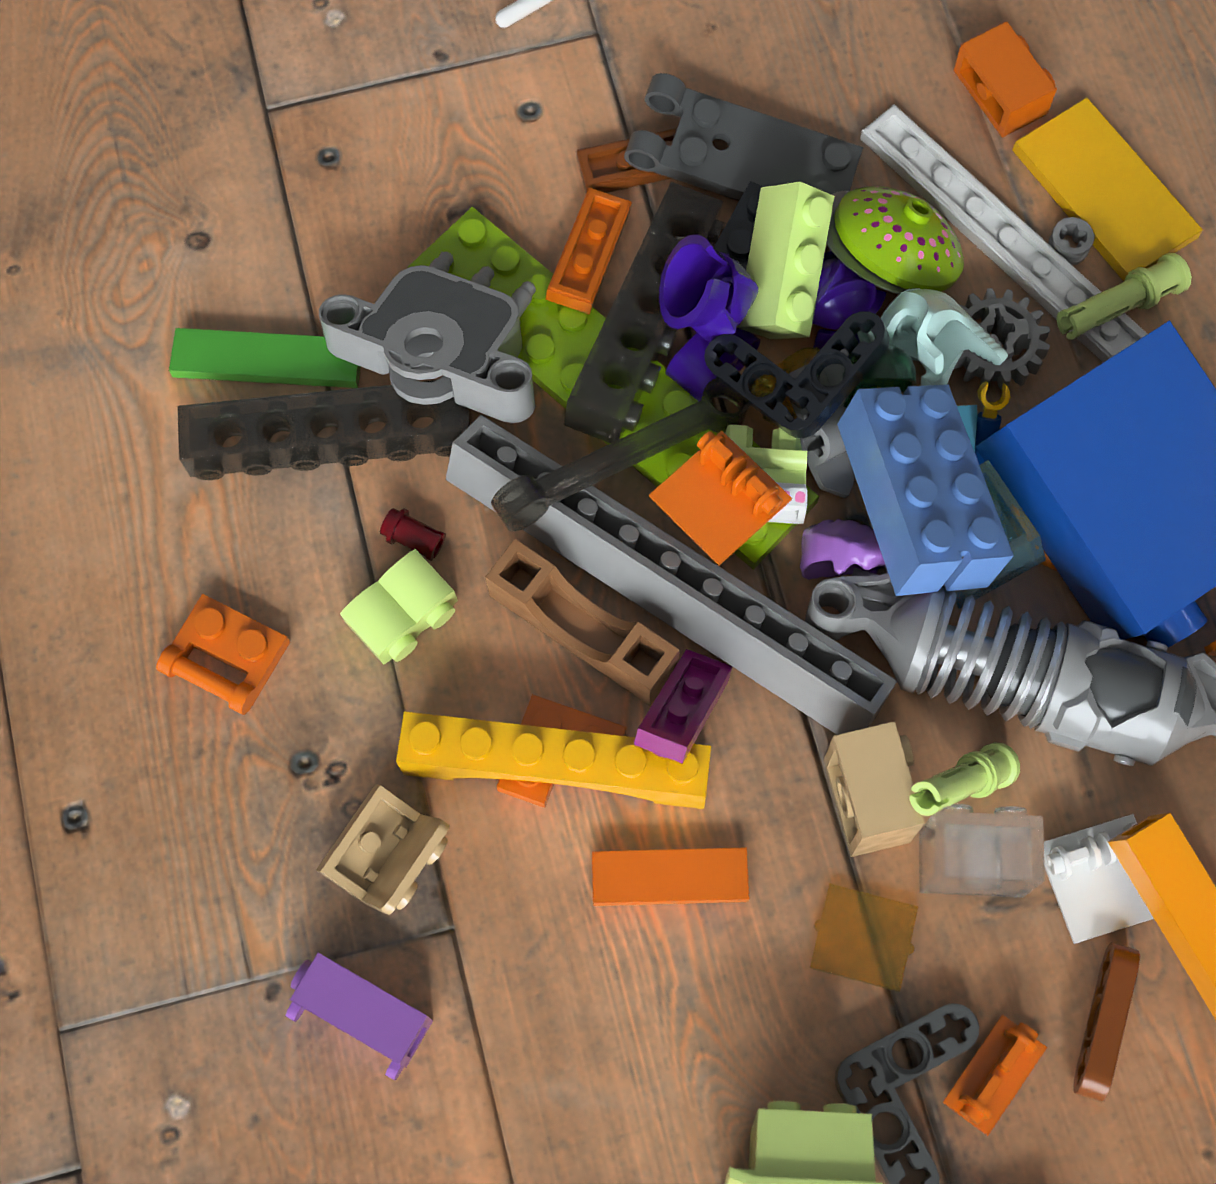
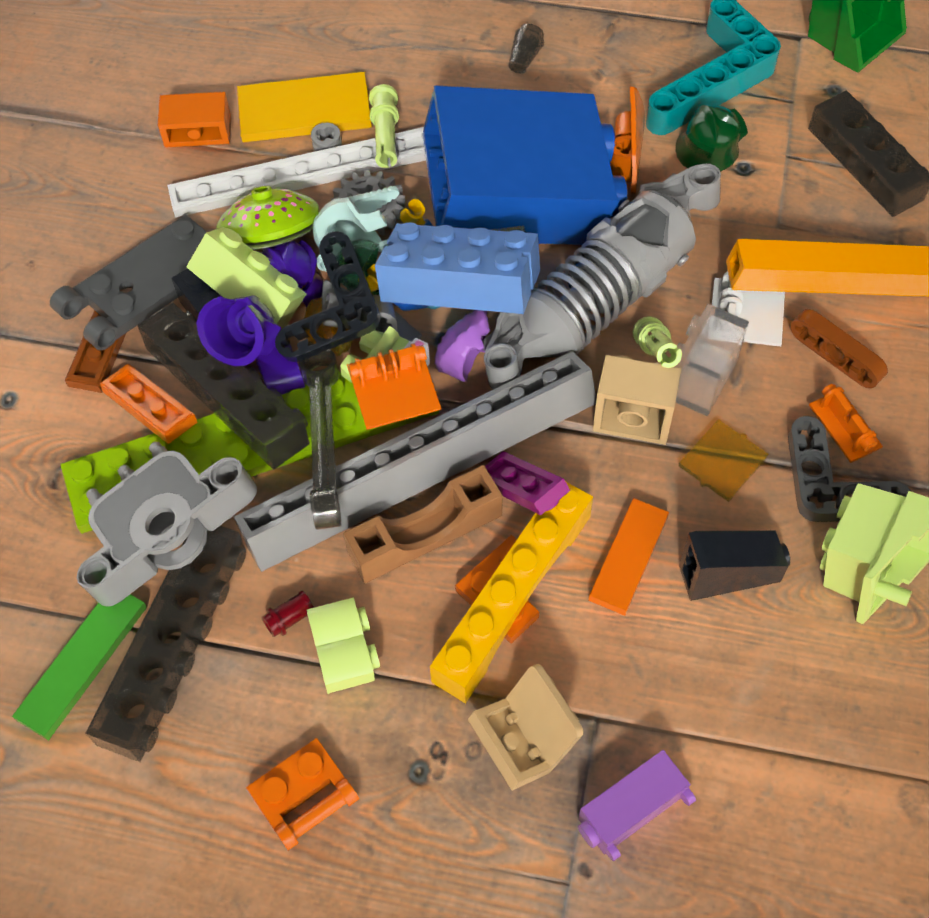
camera: 65 degrees left, 10 degrees down
(712, 1004) = (731, 561): none -> black slope

